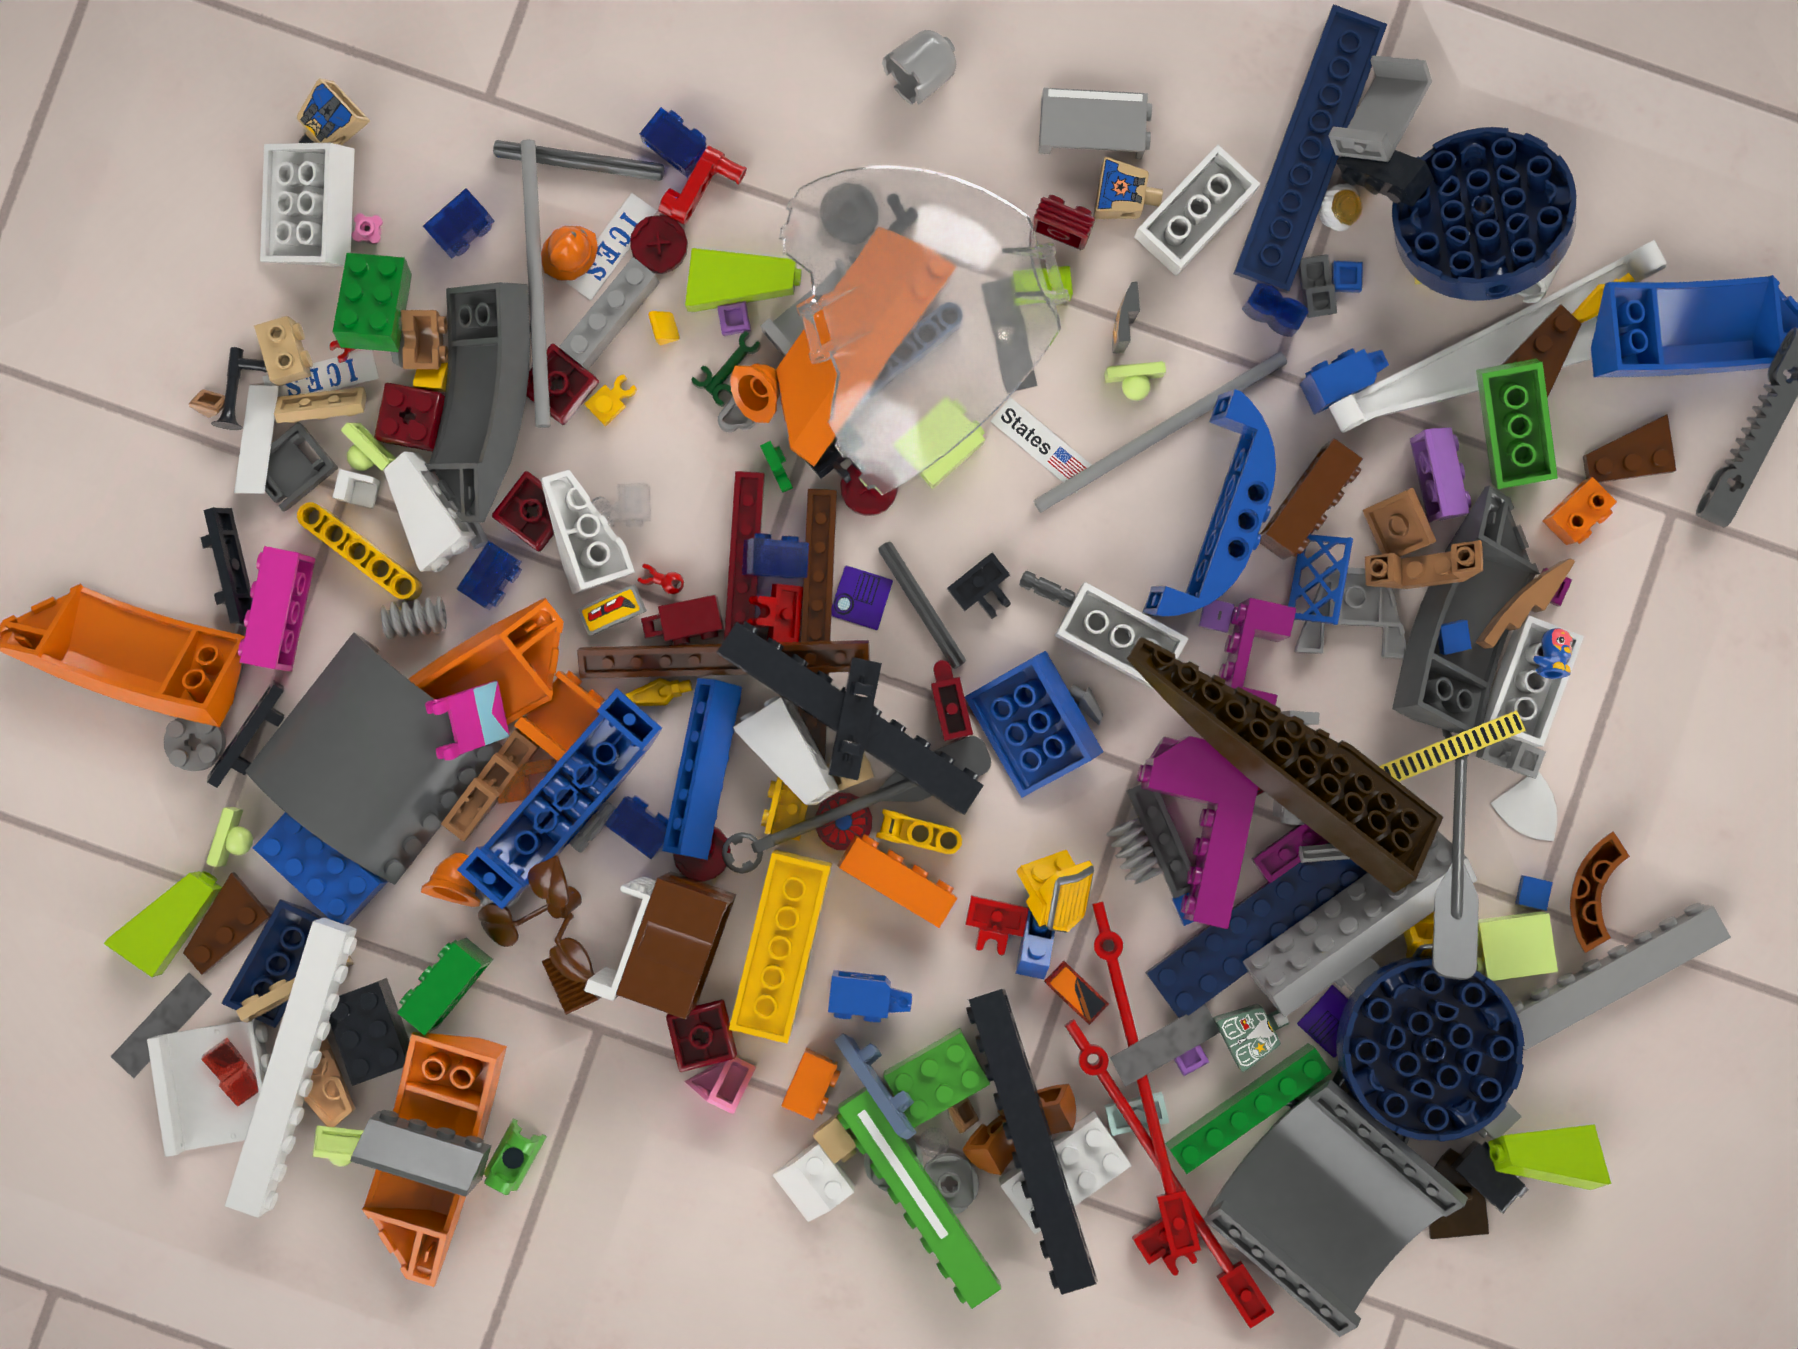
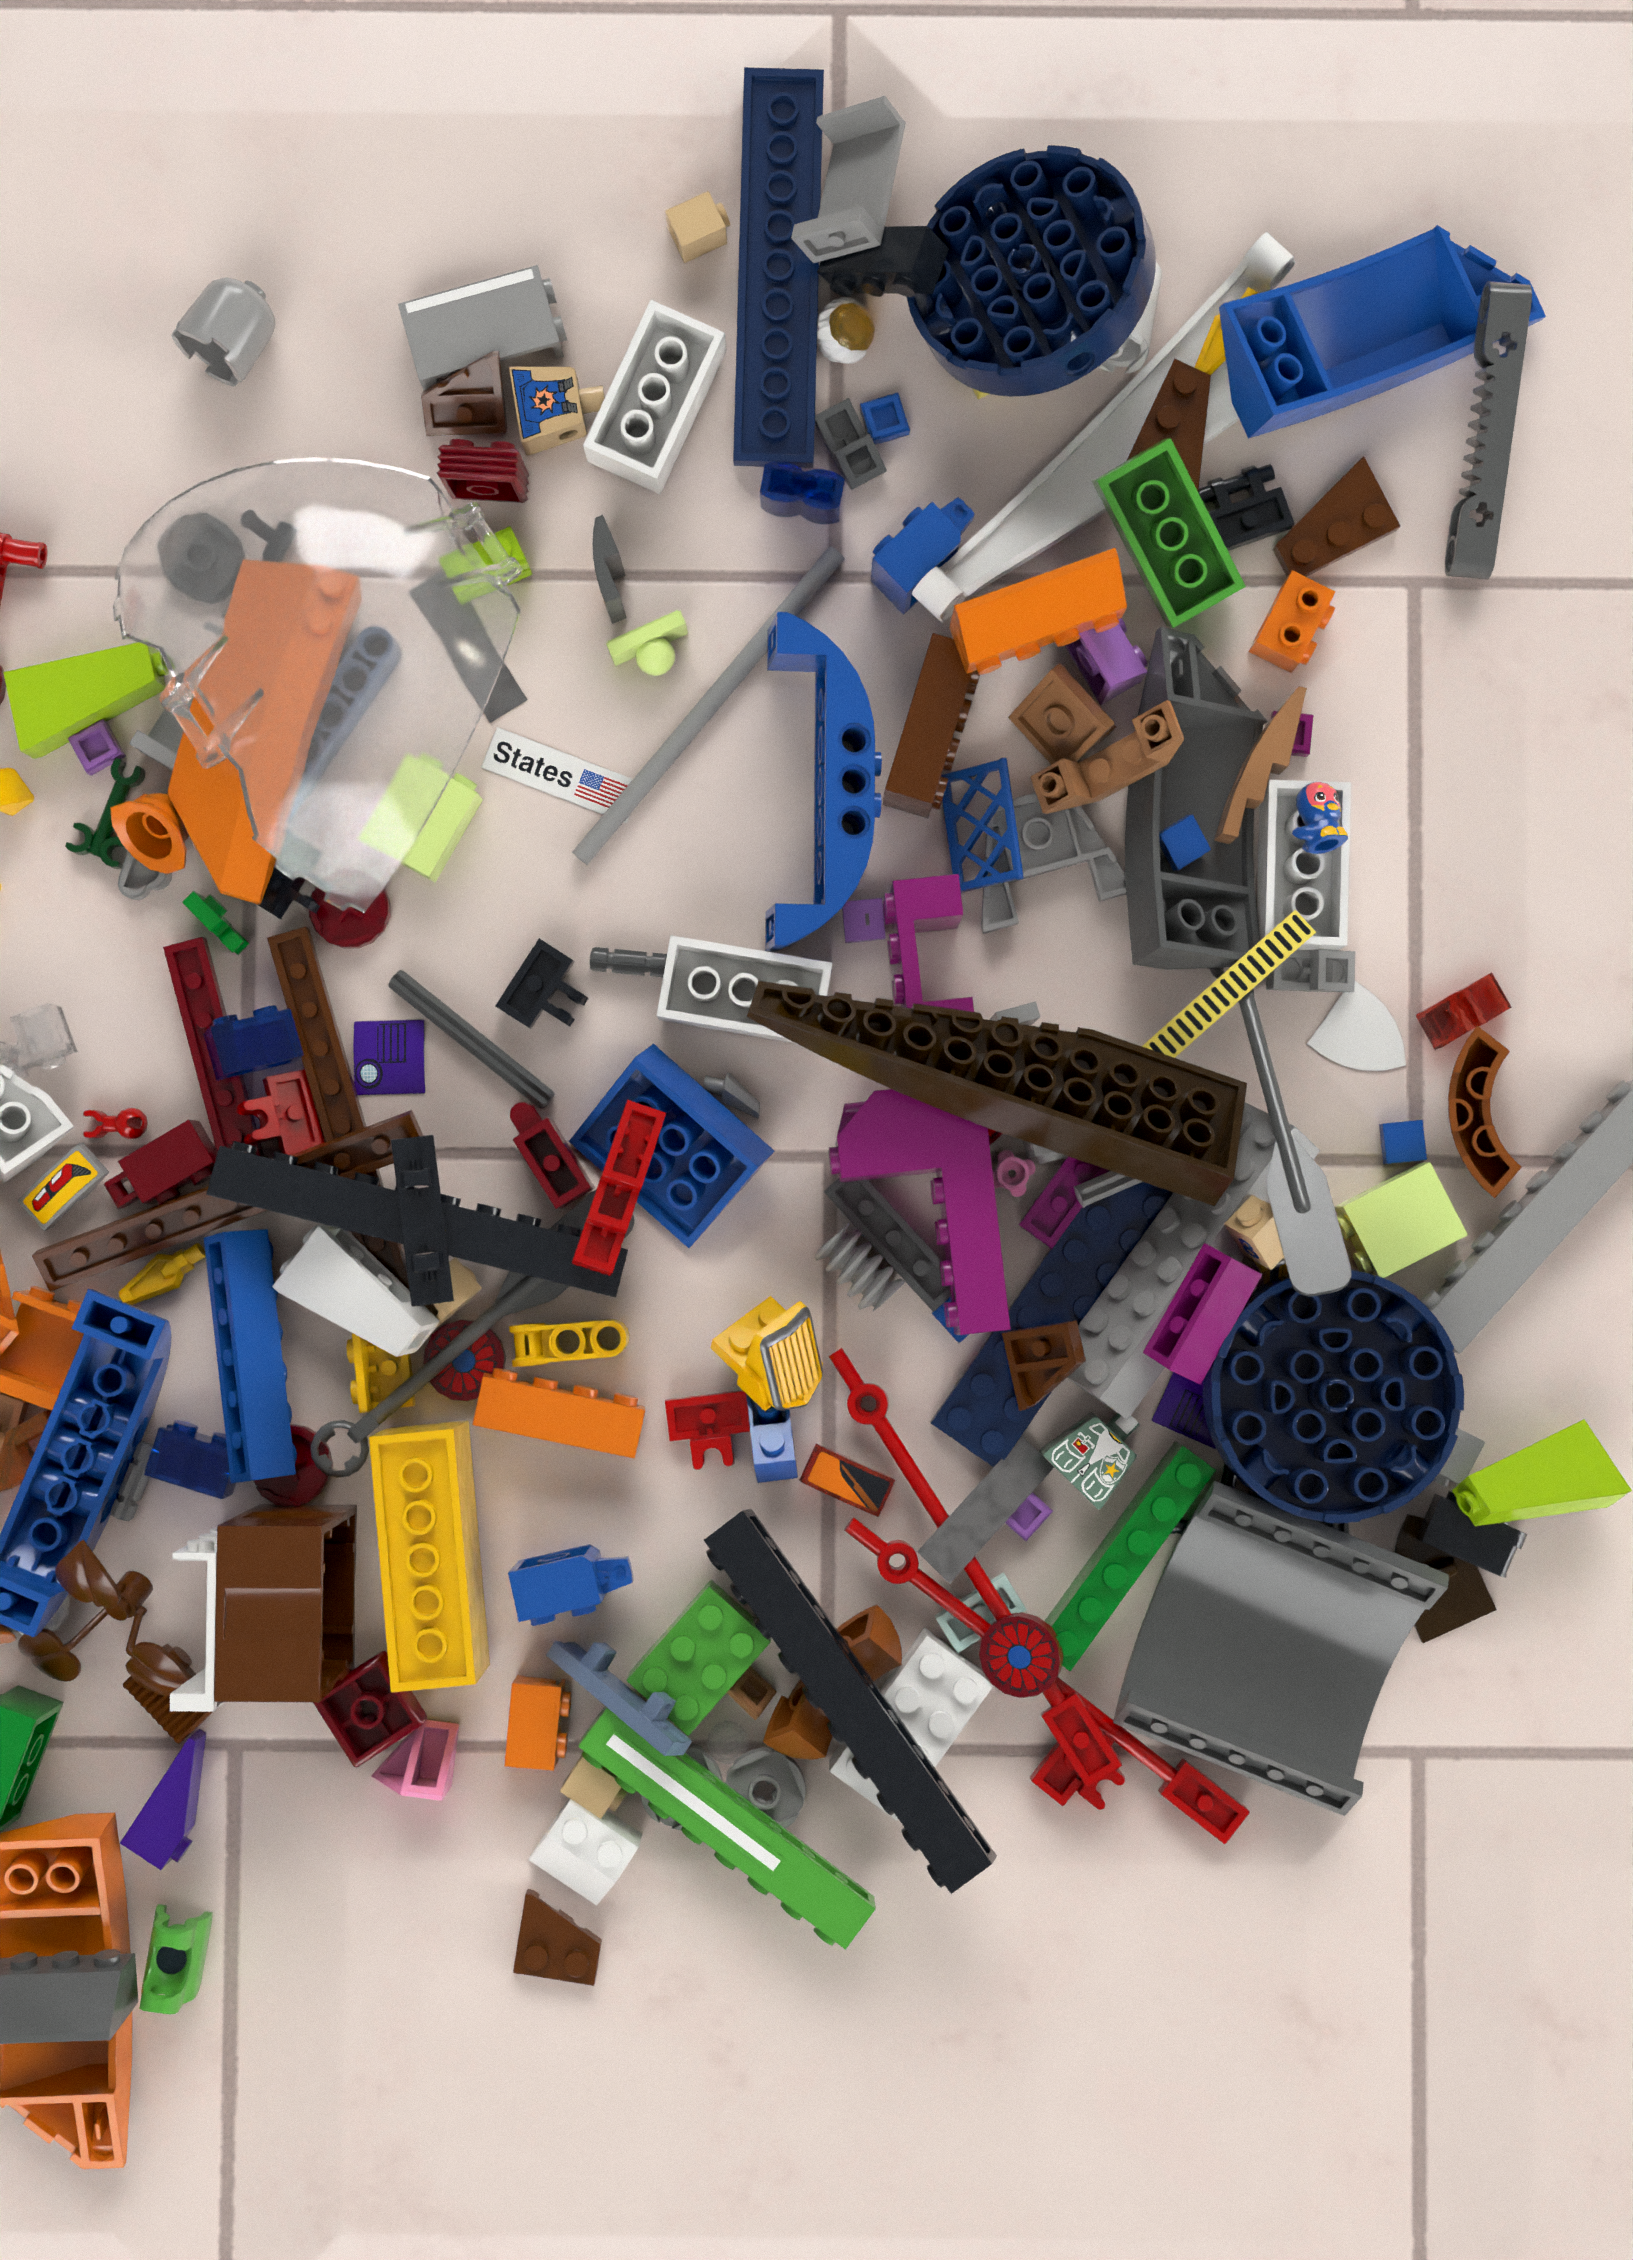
camera: 20 degrees left, 0 degrees up
(542, 1059) = (171, 1810): none -> dark purple slope
(771, 1239) = (554, 1945): none -> reddish brown wing
(992, 741) = (619, 1188): none -> red slope
(1067, 169) = (467, 400): none -> reddish brown wing
(1157, 1151) = (1021, 1655): none -> tile
(1239, 956) = (1042, 1359): none -> reddish brown wing
(1264, 102) = (697, 226): none -> tan brick
(1267, 822) = (1023, 1169): none -> bright pink plate
(1361, 962) = (1202, 1313): none -> magenta brick
(1413, 451) = (1039, 612): none -> orange slope
(1417, 921) = (1256, 1232): none -> tan brick
(1576, 430) = (1250, 518): none -> black plate
(1606, 817) = (1463, 1011): none -> clear red slope

